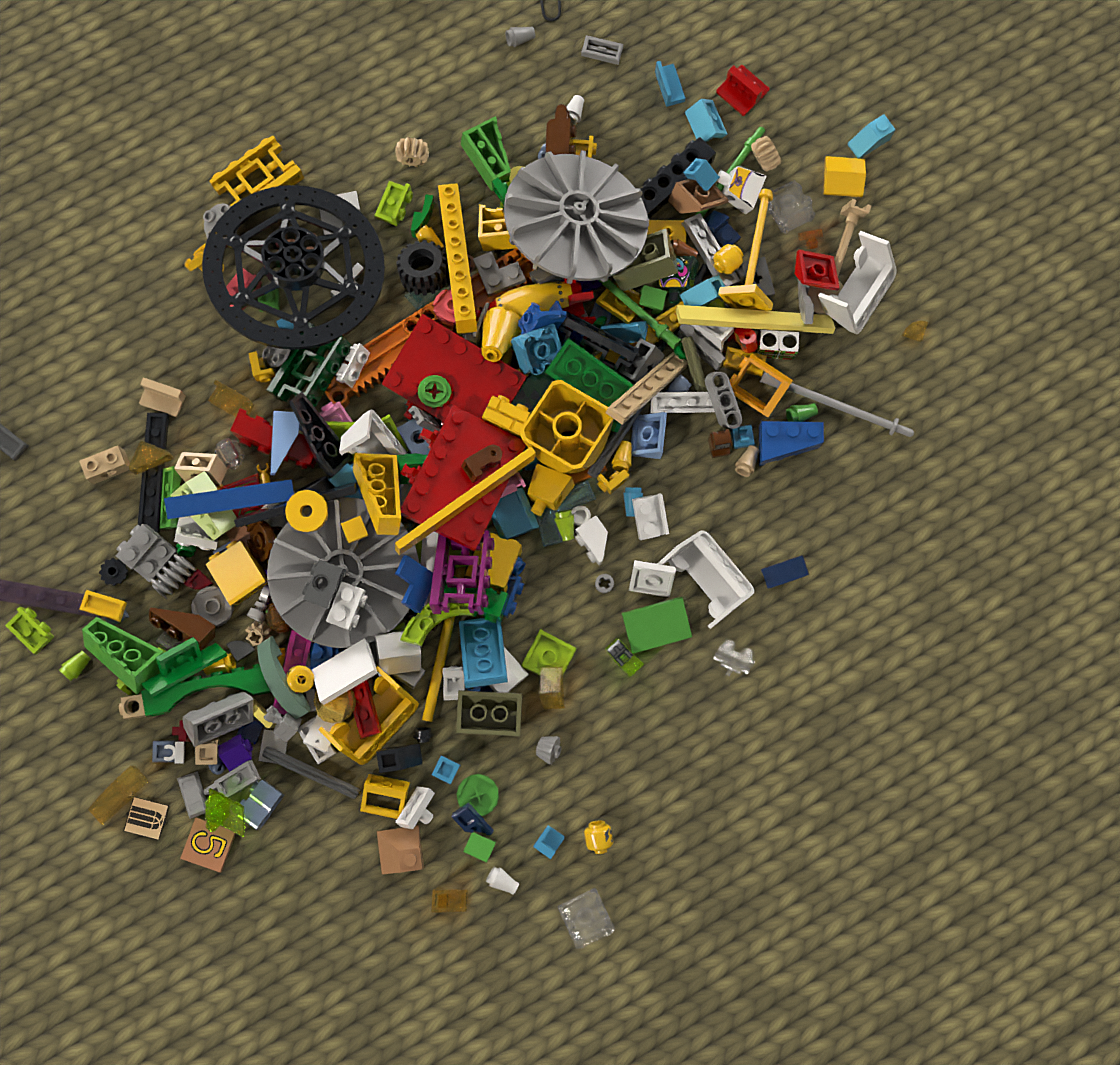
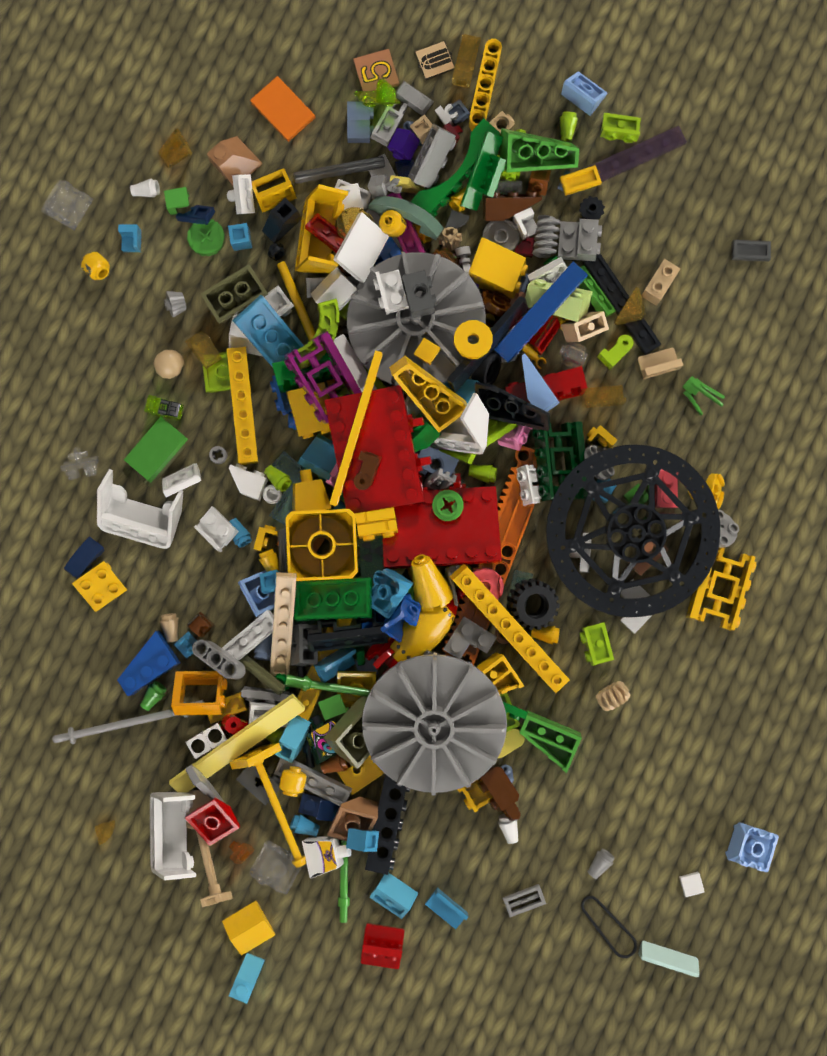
camera: 145 degrees right, 5 degrees up
(36, 687) = (583, 93): none -> light blue slope
(109, 760) = (485, 77): none -> yellow beam
(141, 629) = (539, 181): none -> dark orange bracket
(147, 357) = (693, 386): none -> bright green plant
(182, 600) = (525, 223): none -> white panel
(190, 430) = (620, 349): none -> lime leg
(320, 870) = (282, 108): none -> orange tile
(382, 406) = (485, 473): none -> lime cone
(419, 580) = (351, 349): blue tile -> none
(422, 219) = (565, 643): green slope -> none
(552, 609) = (242, 405): none -> yellow brick
(592, 697) = (168, 363): none -> tan hair
(633, 436) = (268, 581): none -> dark azure tile
(744, 224) = (302, 825): none -> dark azure cone
(766, 153) = (323, 898): tan gear -> none
(787, 538) = (99, 586): none -> yellow hinge

